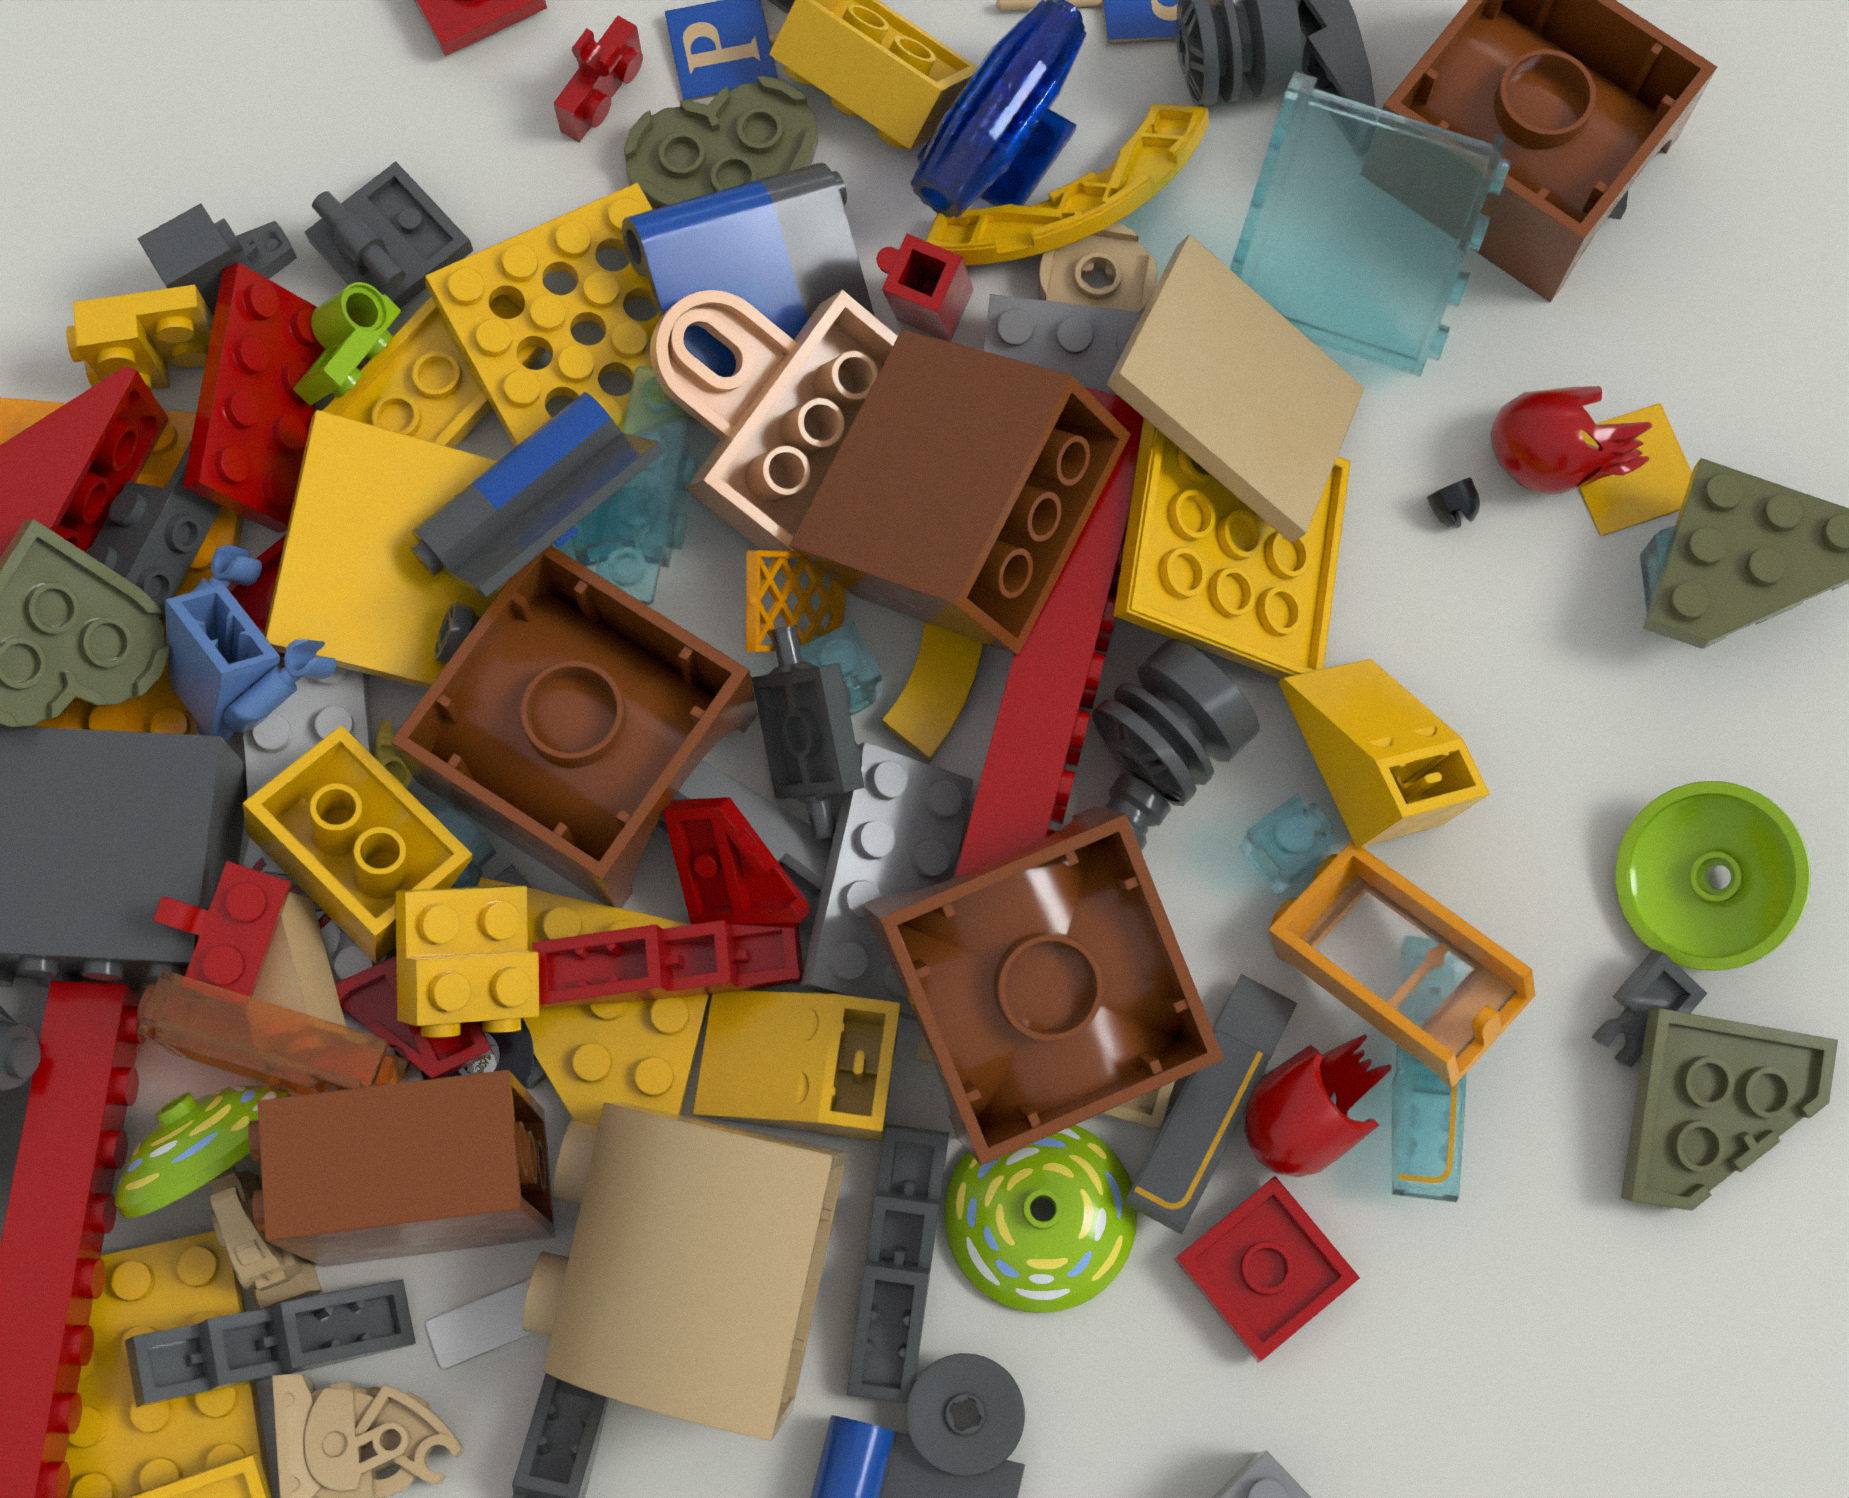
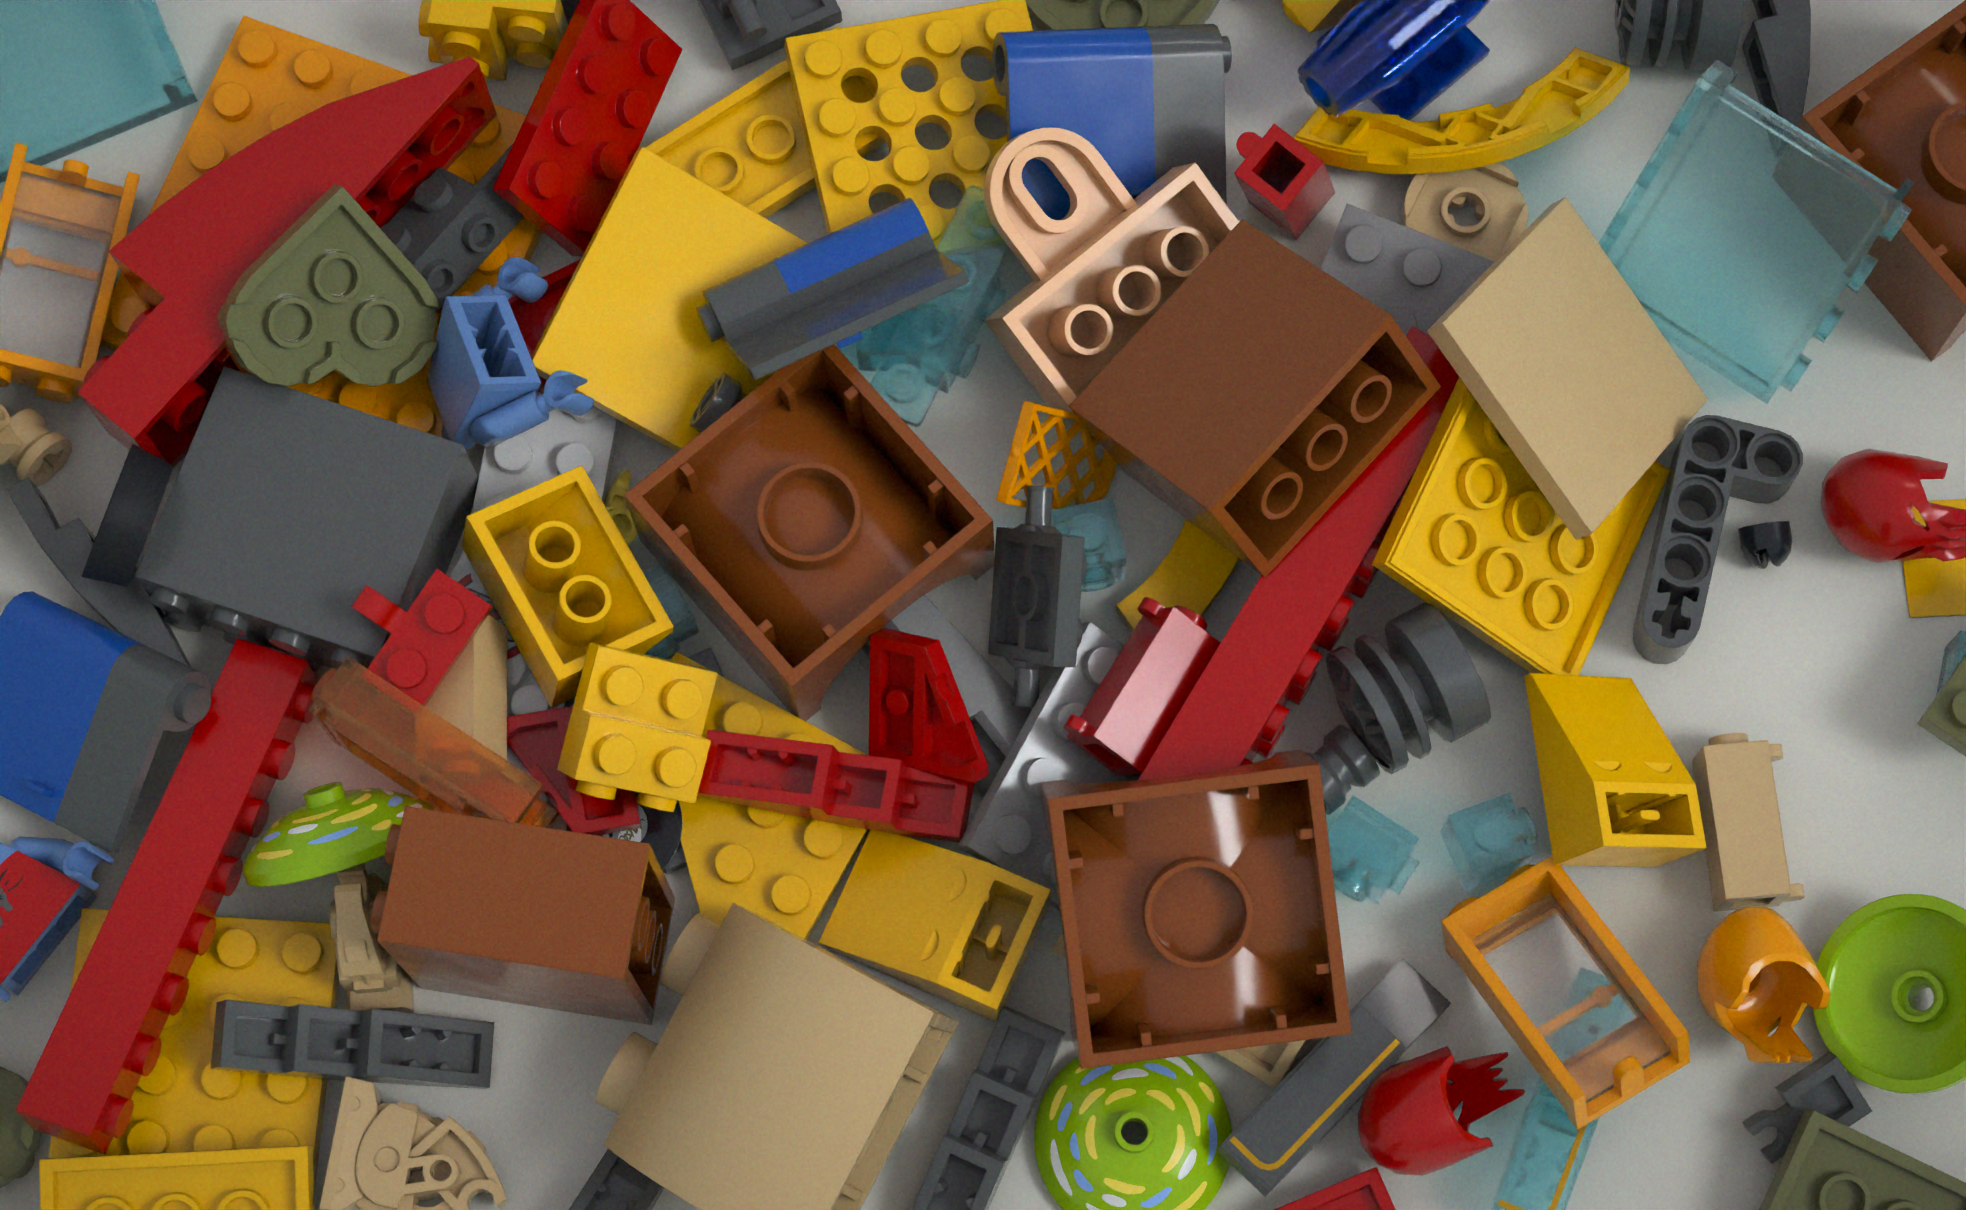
camera: 20 degrees right, 0 degrees up
(349, 328) = (690, 81): lime plate -> none
(478, 1326) = (554, 1089): white sticker -> none
(934, 789) = (1144, 688): none -> red brick
(1187, 883) = (1370, 853): none -> clear light blue brick
(1396, 517) = (1696, 540): none -> dark grey beam
(1522, 780) = (1742, 823): none -> tan brick
(1569, 899) = (1760, 978): none -> light orange helmet

